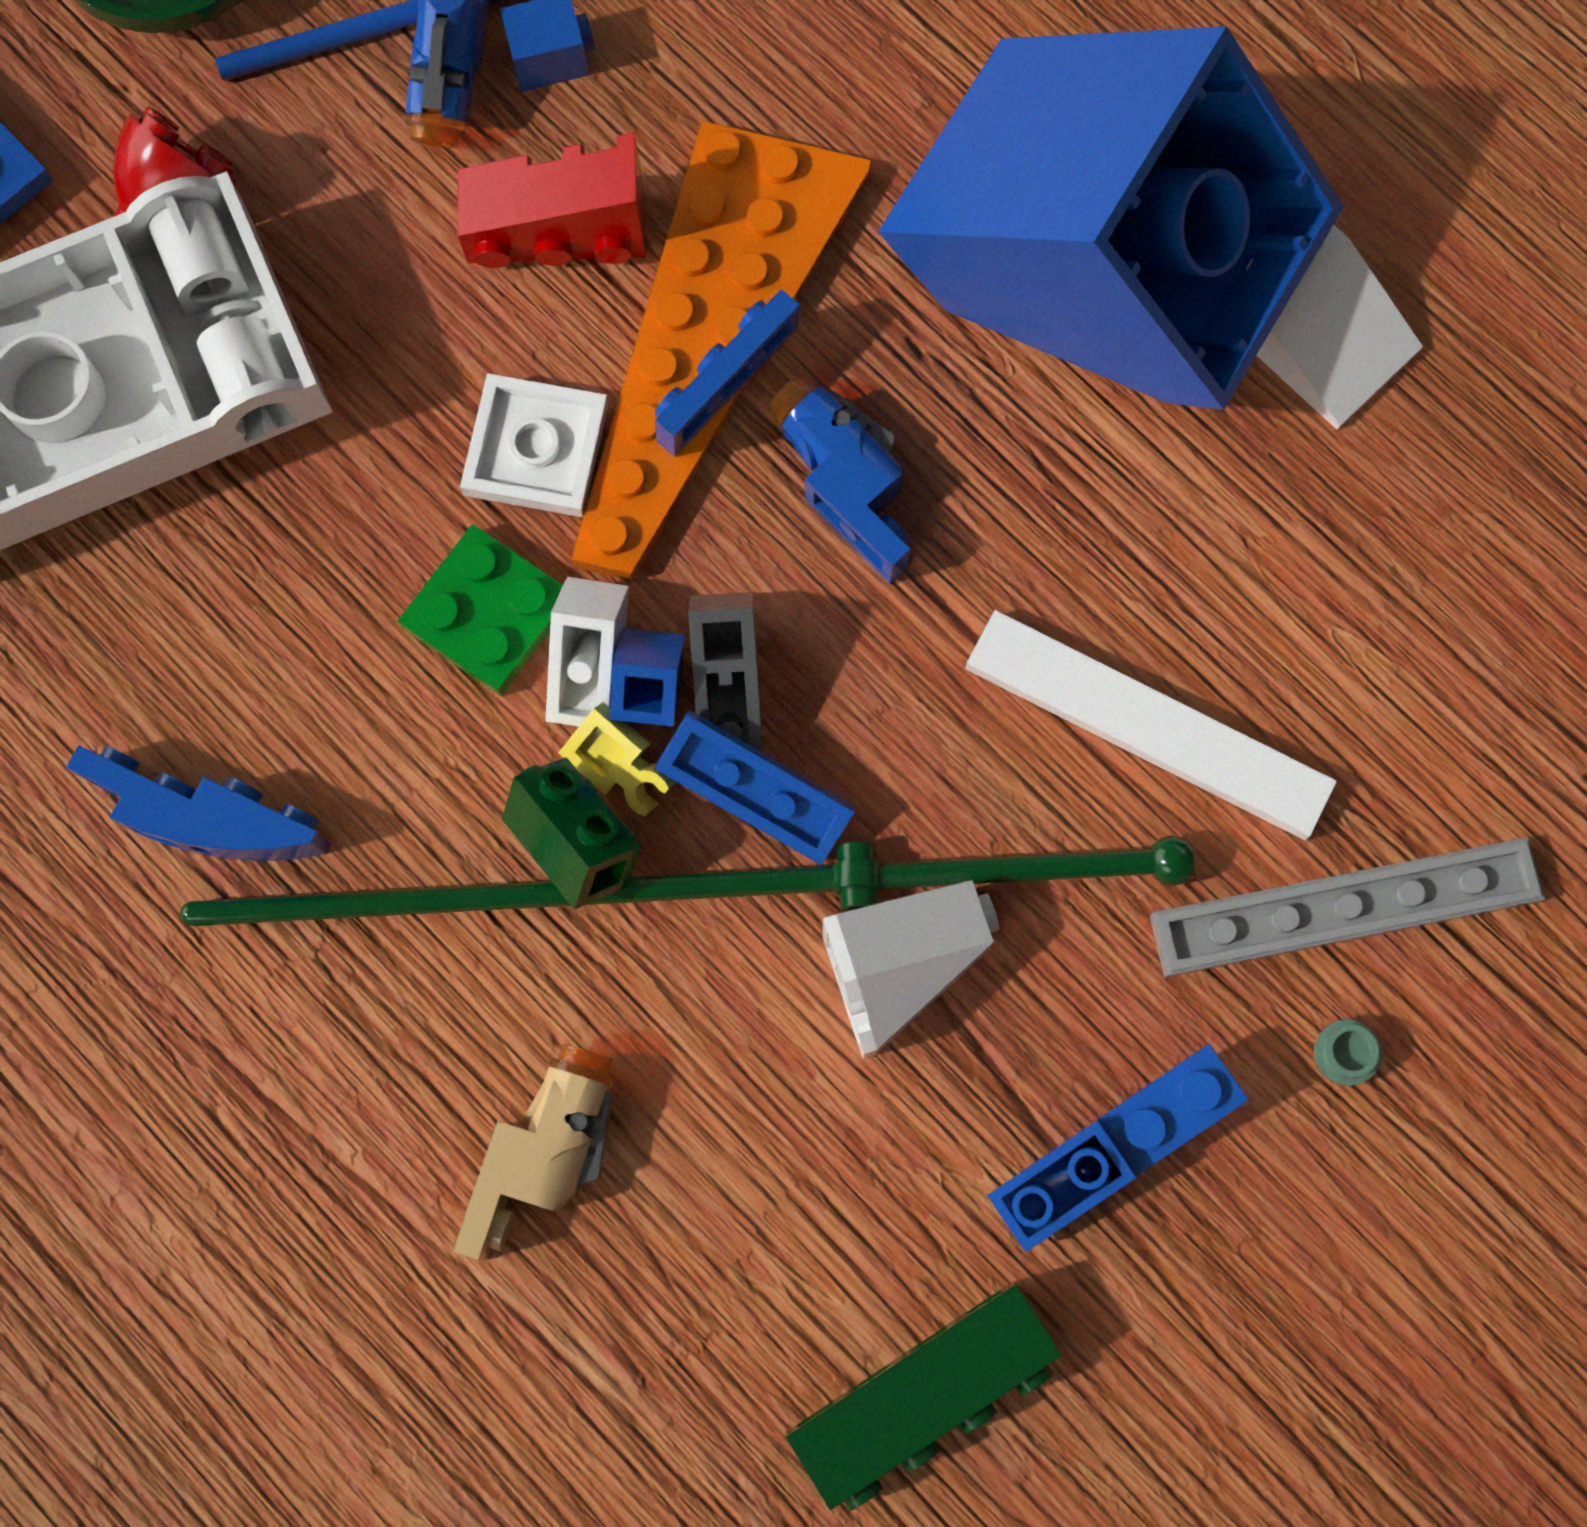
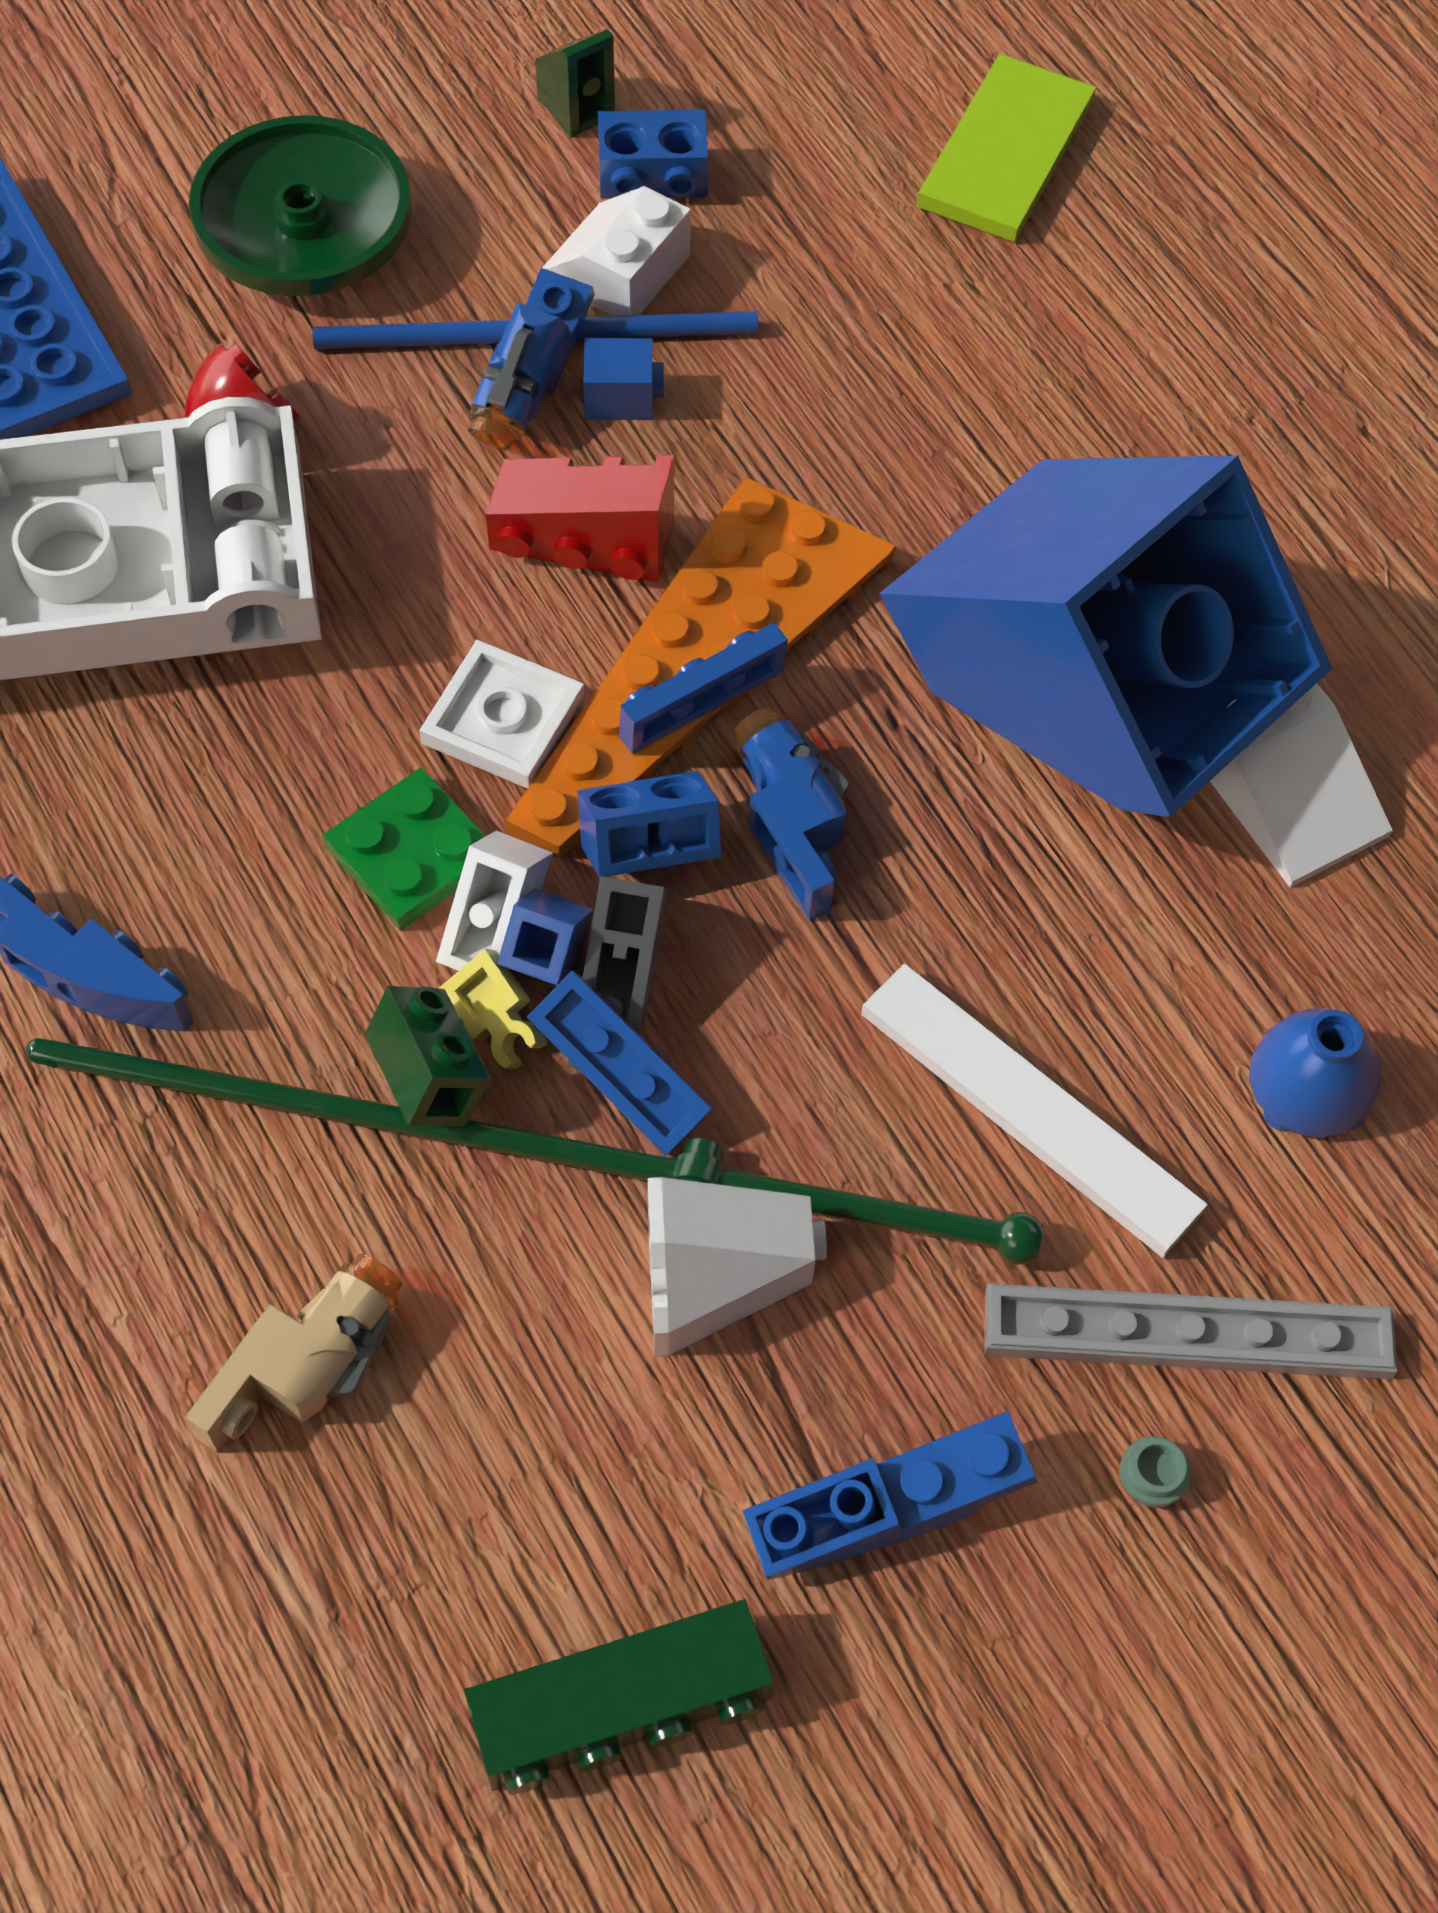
camera: 10 degrees right, 15 degrees down
(714, 532) = (649, 823): none -> blue brick
(1391, 631) = (1316, 1073): none -> blue piece

